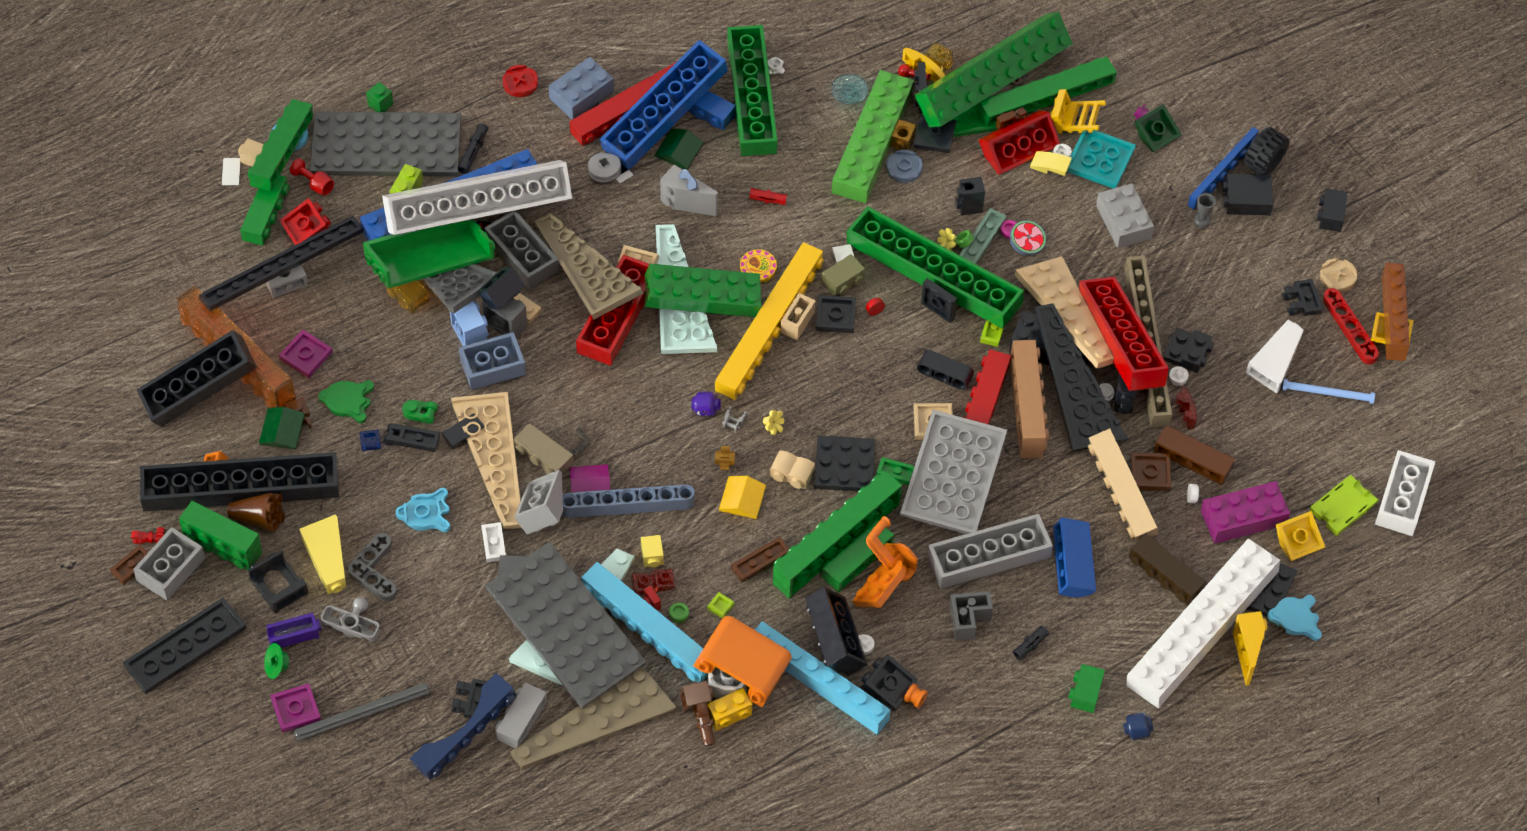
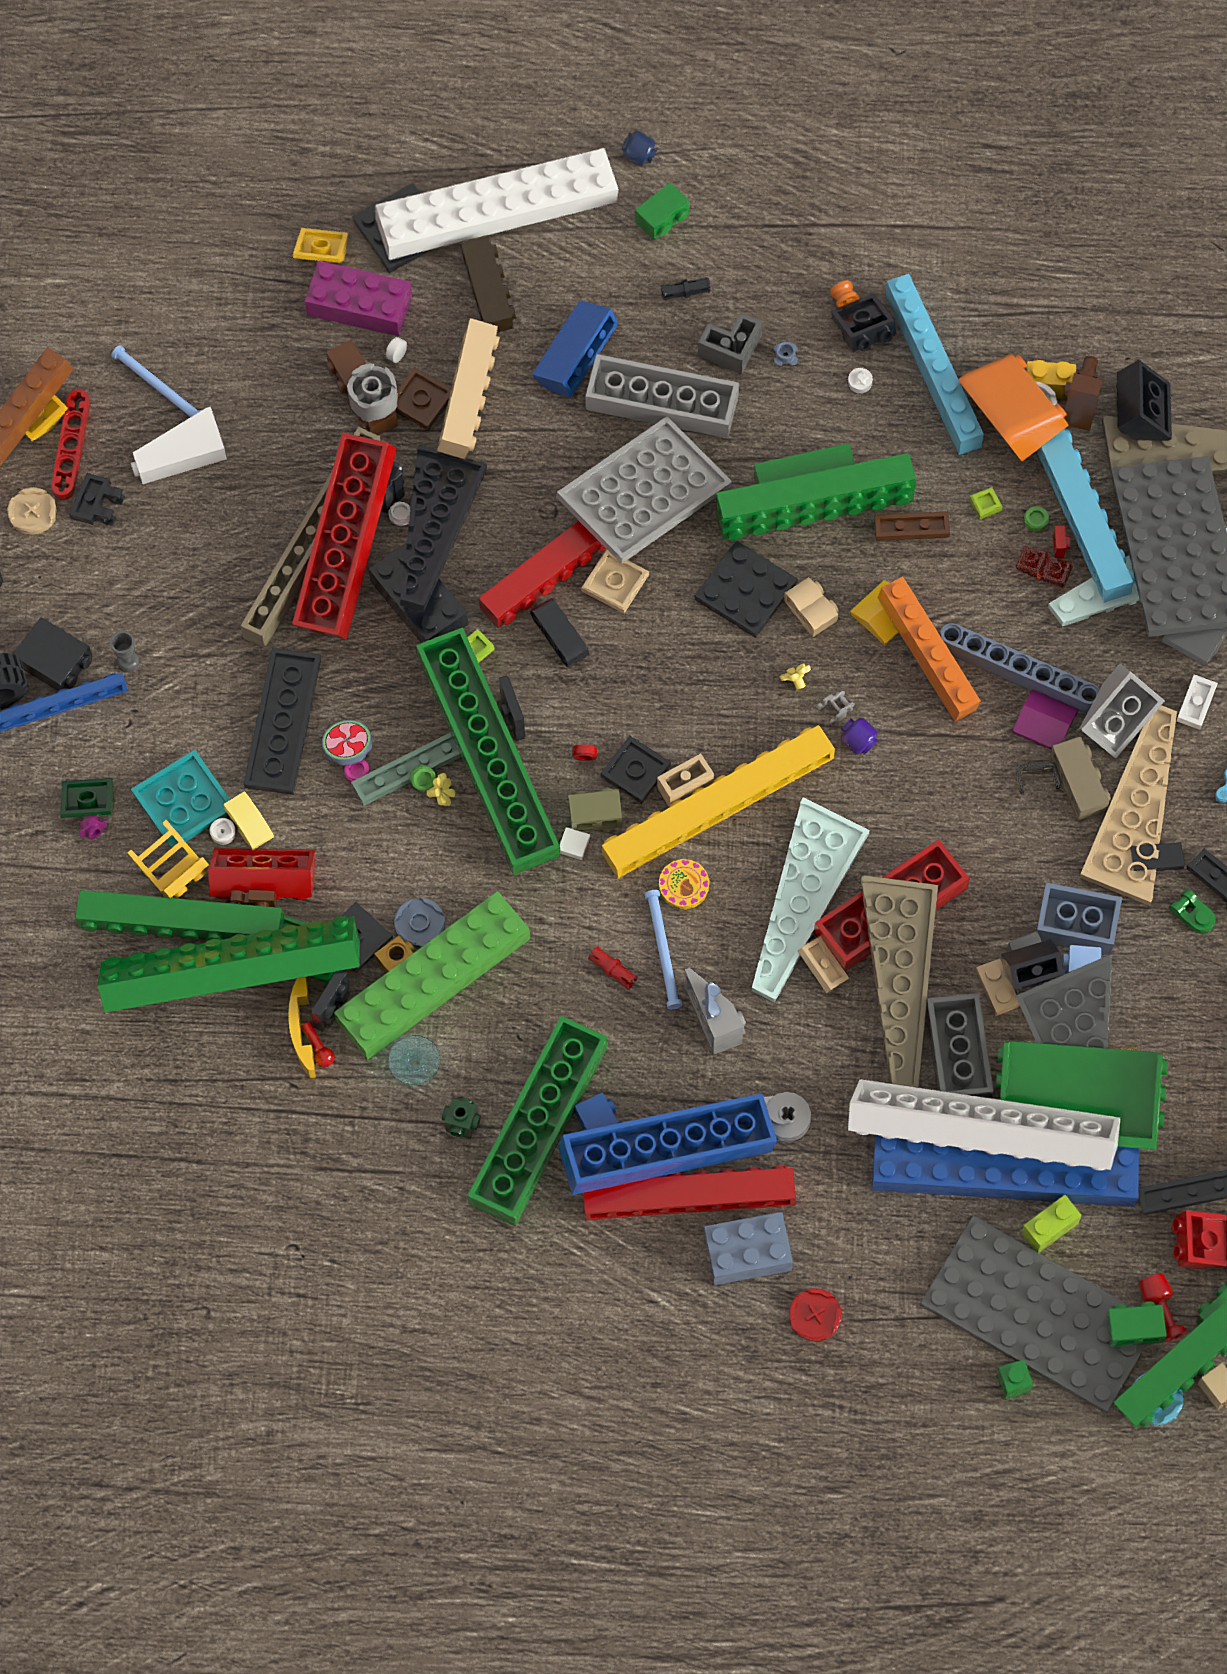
camera: 145 degrees left, 10 degrees up
(321, 151) = (1136, 1324): none -> green brick
(476, 141) = (925, 1247): black pin -> none
(650, 723) = (1143, 403): none -> black slope
(652, 551) = (1026, 596): light yellow brick -> none
(679, 148) = (674, 1093): dark green slope -> none
(694, 473) = (928, 649): none -> orange brick
(702, 290) = (780, 863): green brick -> none
(725, 458) = (878, 658): pearl gold gear -> none
(772, 248) = (673, 1001): none -> light blue bar
(775, 66) = (479, 1143): white plate -> none
(798, 72) = (463, 1125): none -> dark green brick
(836, 631) = (888, 390): black brick -> none
(897, 565) = (805, 422): orange plate -> none
(898, 470) = (695, 544): green plate -> none
(928, 629) = (790, 349): none -> sand blue plate
(940, 56) = (273, 1042): clear yellow brick -> none
(970, 196) = (379, 820): black brick -> none
(1028, 399) = (498, 535): medium nougat brick -> none
(1054, 283) = (371, 642): tan wing -> none
(1077, 231) = (282, 721): none -> black plate
(1124, 216) = (215, 705): light grey brick -> none
(1178, 376) = (304, 490): white tile -> none
(1179, 435) = (372, 392): none -> light grey brick
(1187, 405) = (324, 448): clear red slope -> none
(1188, 349) = (269, 512): black plate -> none
(1248, 637) = (467, 154): yellow slope -> none
(1296, 616) = (392, 169): medium azure tile -> none
(1342, 504) = (245, 259): lime piece -> none
(1405, 493) = (177, 225): white brick -> none

